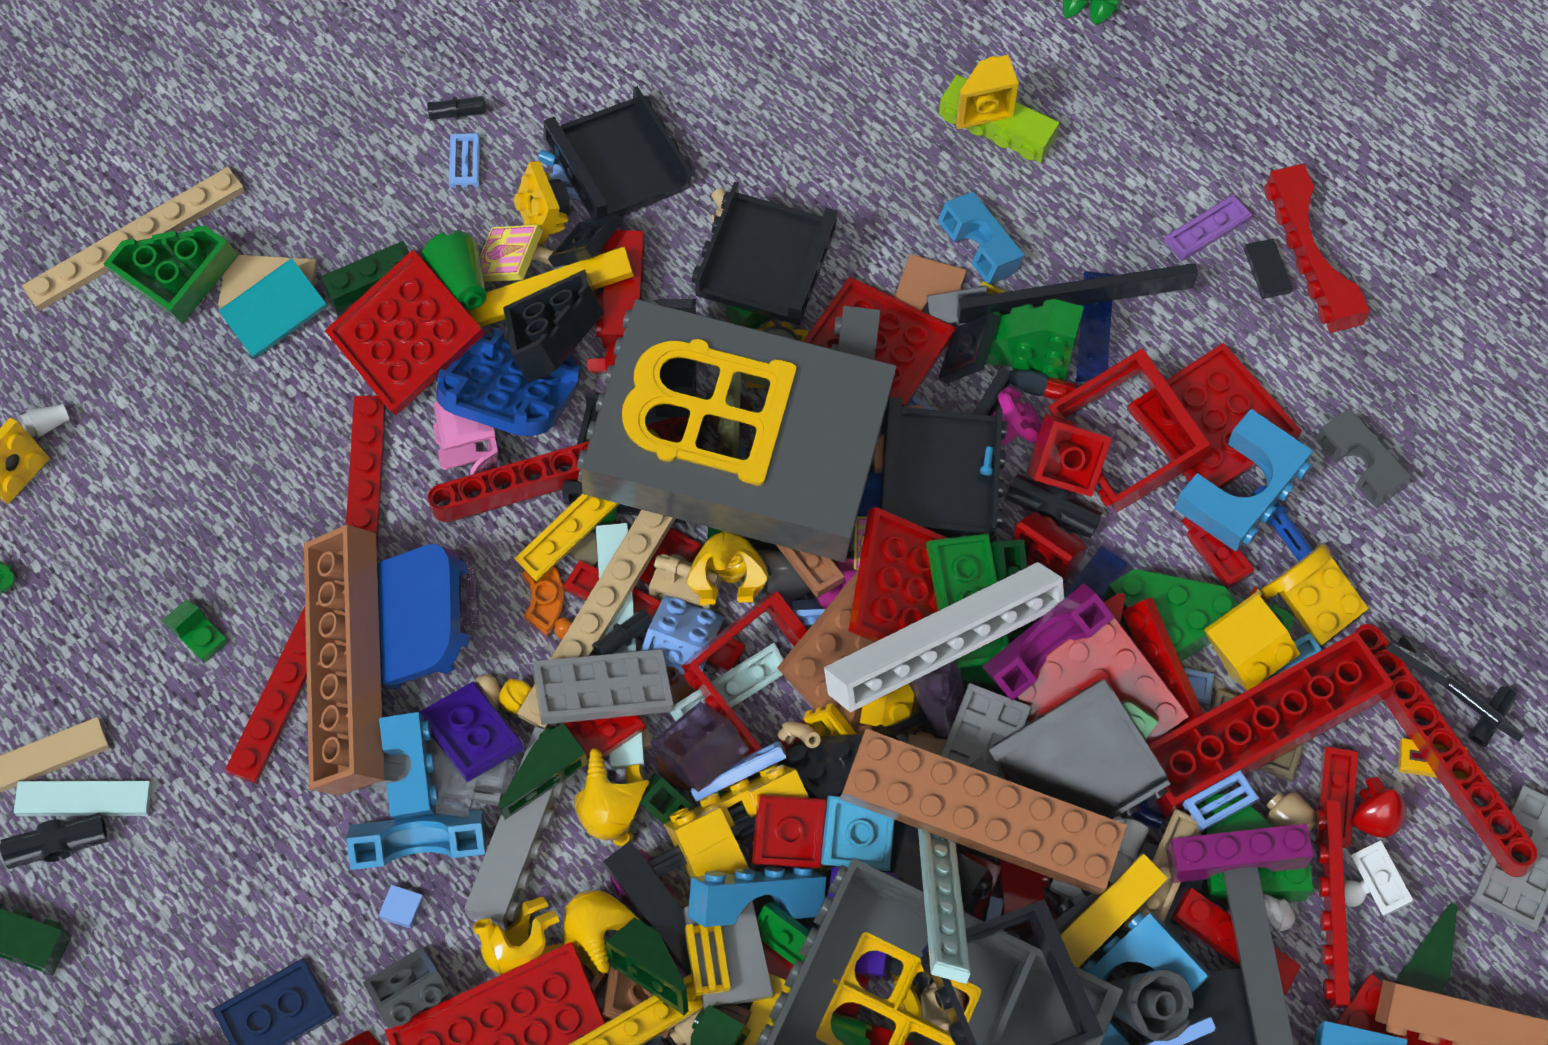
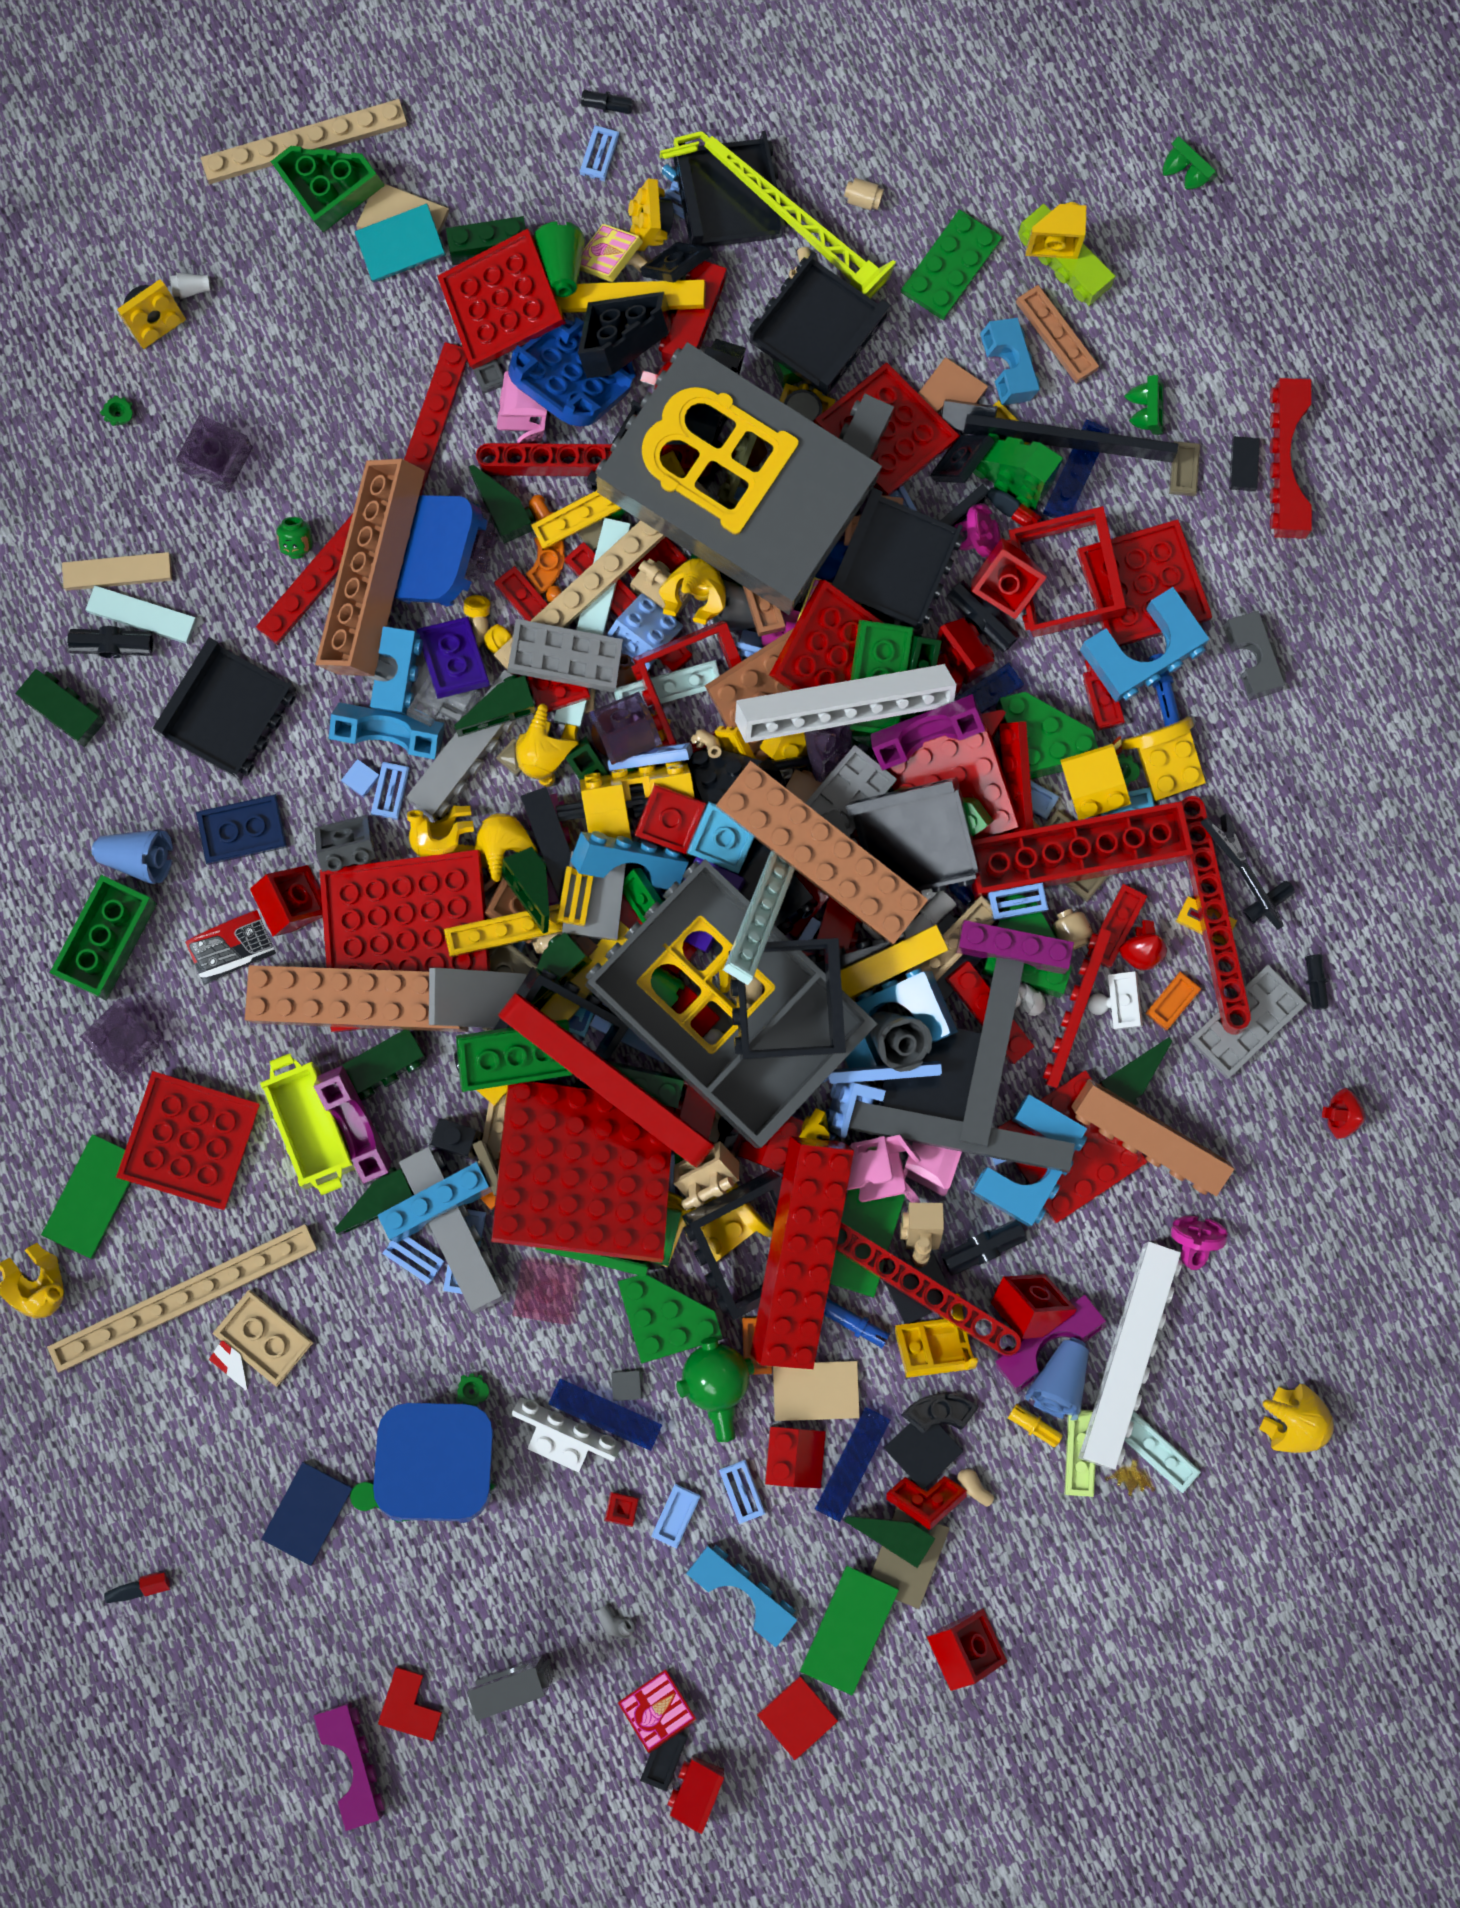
camera: 15 degrees right, 15 degrees up
(122, 590) = (214, 453): none -> clear purple brick
(195, 630) = (262, 504): green slope -> none
(214, 878) = (225, 710): none -> black panel
(243, 654) = (294, 537): none -> green head
(416, 418) = (489, 376): none -> dark grey tile
(443, 938) = (400, 794): none -> light blue tile
(479, 667) = (476, 606): none -> yellow tile
(484, 552) = (505, 508): none -> dark green slope
(515, 539) = (538, 507): none -> orange arm
(525, 638) = (520, 594): none -> red plate
(571, 828) = (508, 758): none -> dark tan tile
(622, 633) = (596, 616): black axle -> none
(762, 120) = (863, 194): none -> tan brick
(798, 195) = (867, 279): none -> neon yellow piece
(880, 163) = (951, 264): none -> green plate
(986, 469) = (933, 571): dark azure piece -> none
(1019, 198) = (1057, 334): none -> nougat plate
(1141, 228) = (1152, 395): none -> green tile
(1207, 227) = (1208, 410): medium lavender tile -> none
(1209, 294) = (1185, 469): none -> dark tan tile
(1434, 862) = (1173, 1001): none -> orange tile

